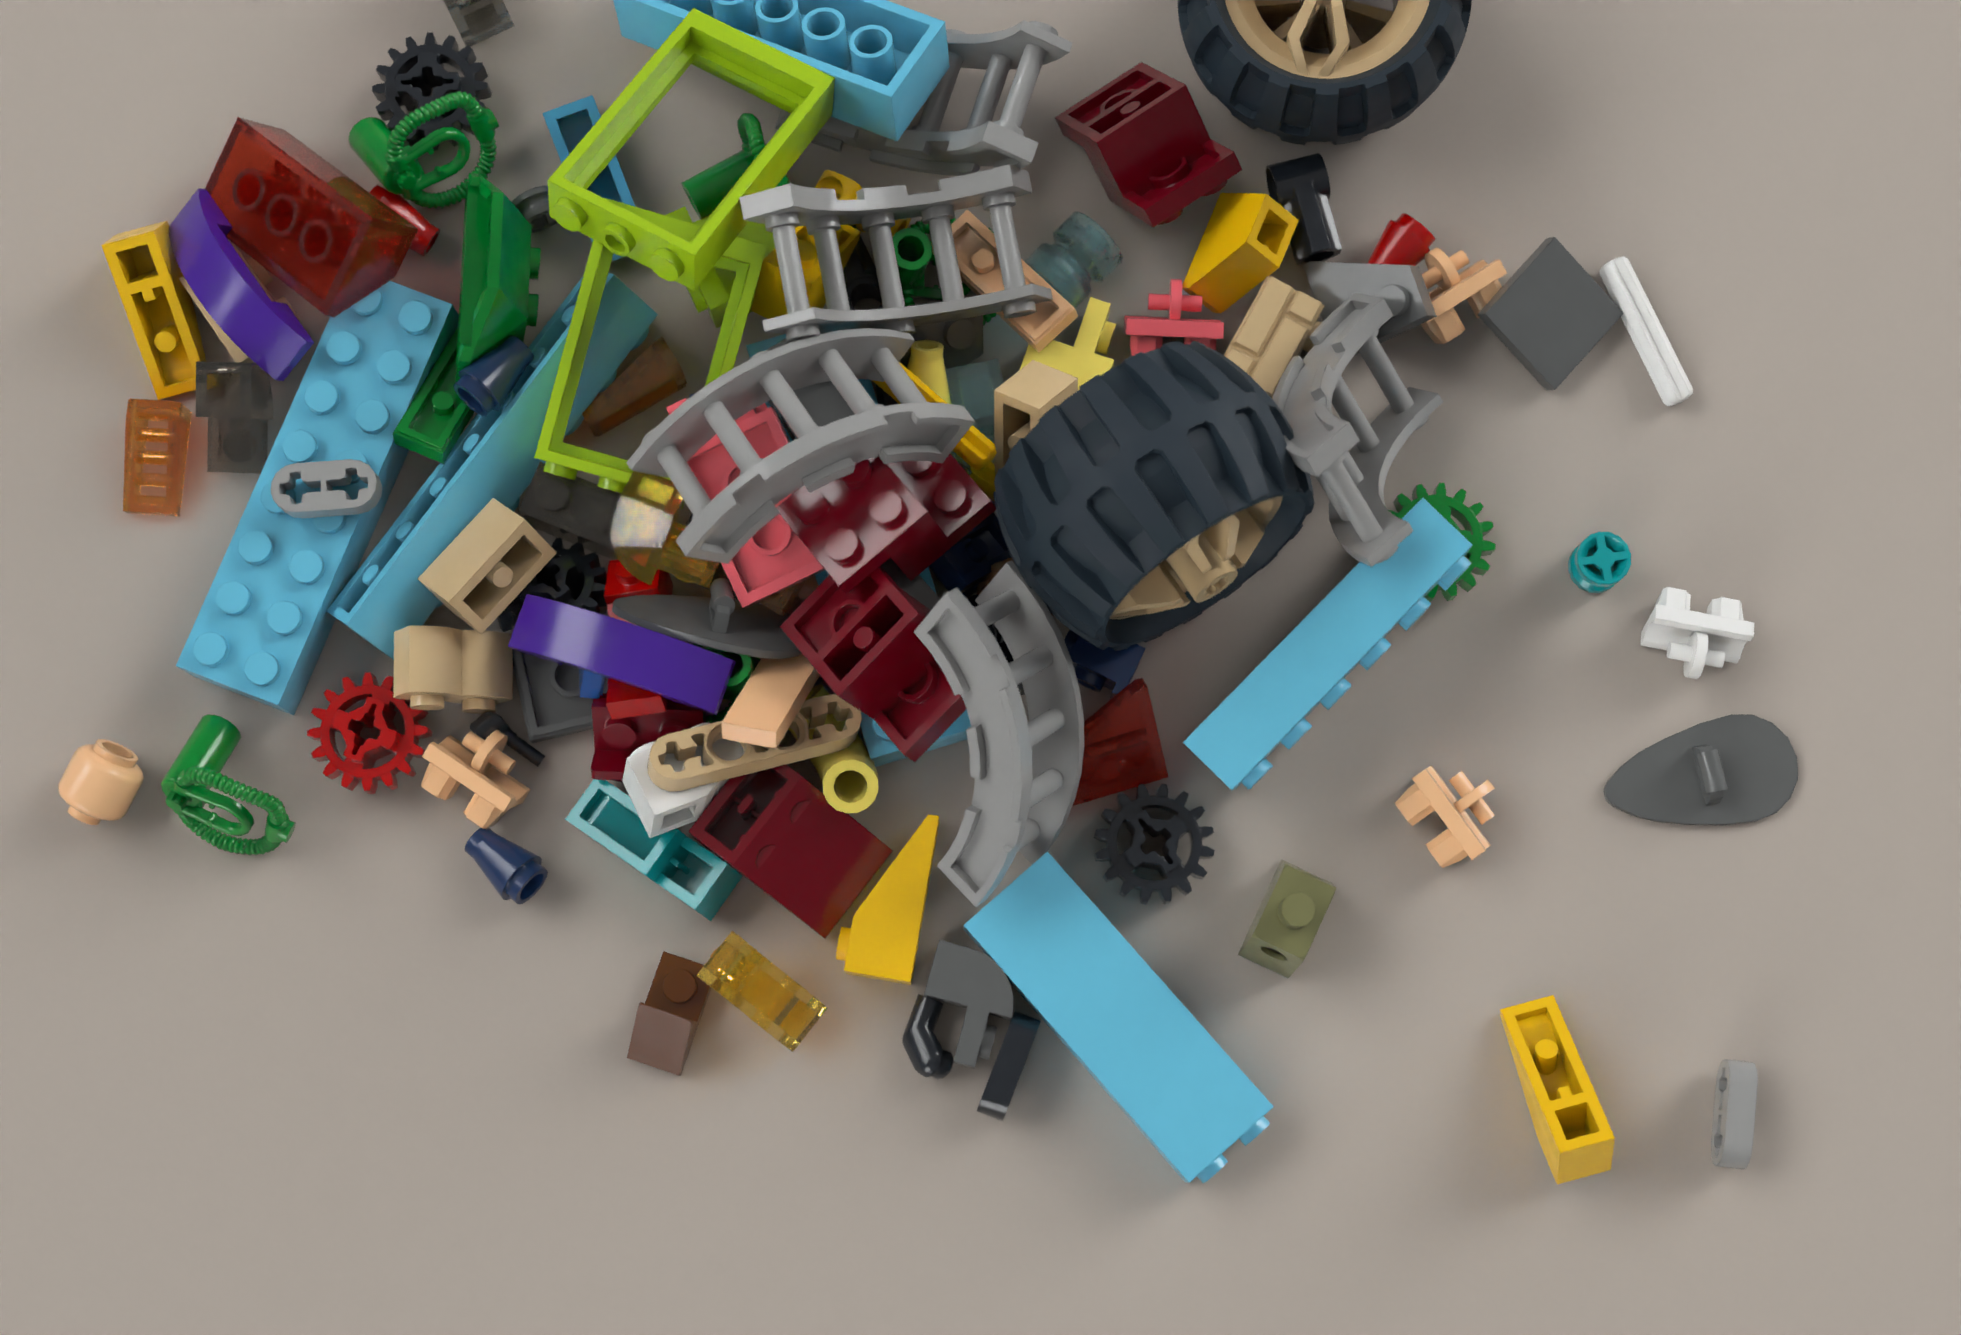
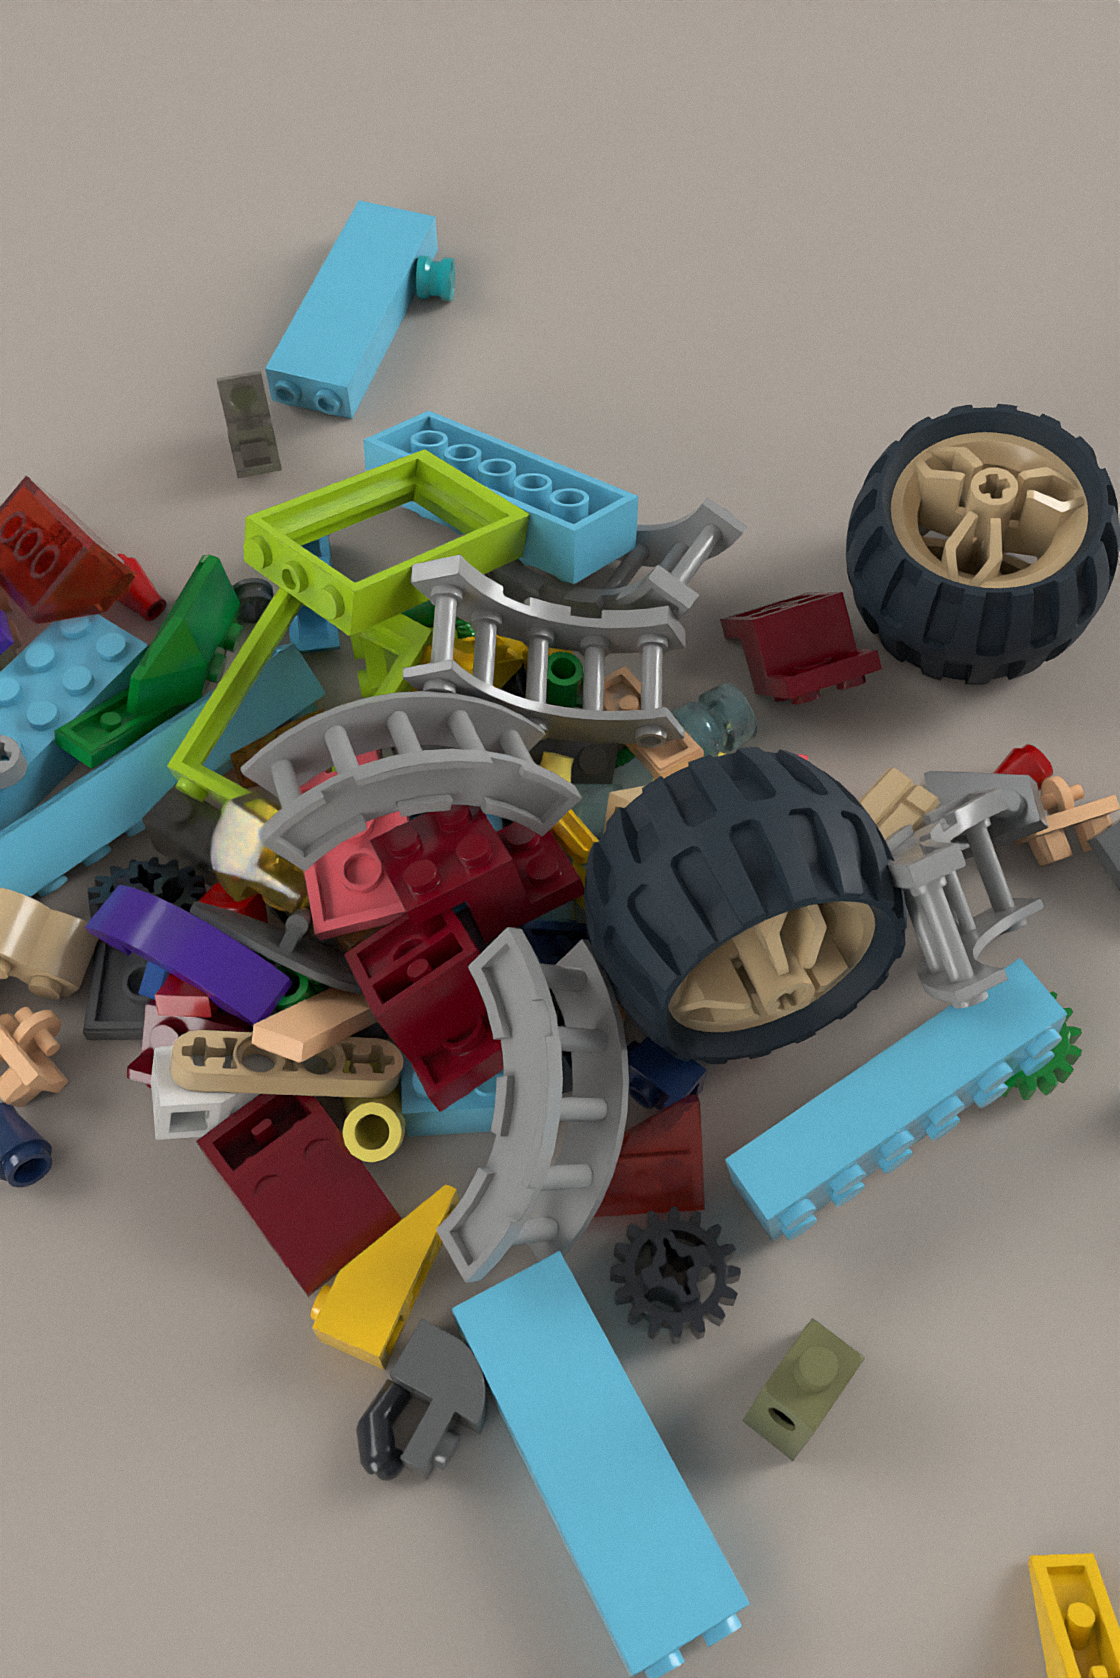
camera: 15 degrees right, 20 degrees down
(399, 166) = (145, 539): green piece -> none
(419, 70) = (201, 500): black gear -> none
(487, 565) = (94, 855): tan brick -> none
(490, 721) = (68, 1028): black hand -> none
(493, 376) = (159, 702): dark blue cone -> none
(666, 859) = (167, 1167): teal slope -> none
(670, 1015) = (121, 1343): reddish brown slope -> none
(762, 991) = (220, 1330): clear yellow brick -> none
(1008, 1066) = (461, 1484): black beam -> none
(1238, 248) = (869, 739): yellow slope -> none
(1304, 191) = (933, 718): black piece -> none
(1432, 795) = (1008, 1344): light nougat hips -> none

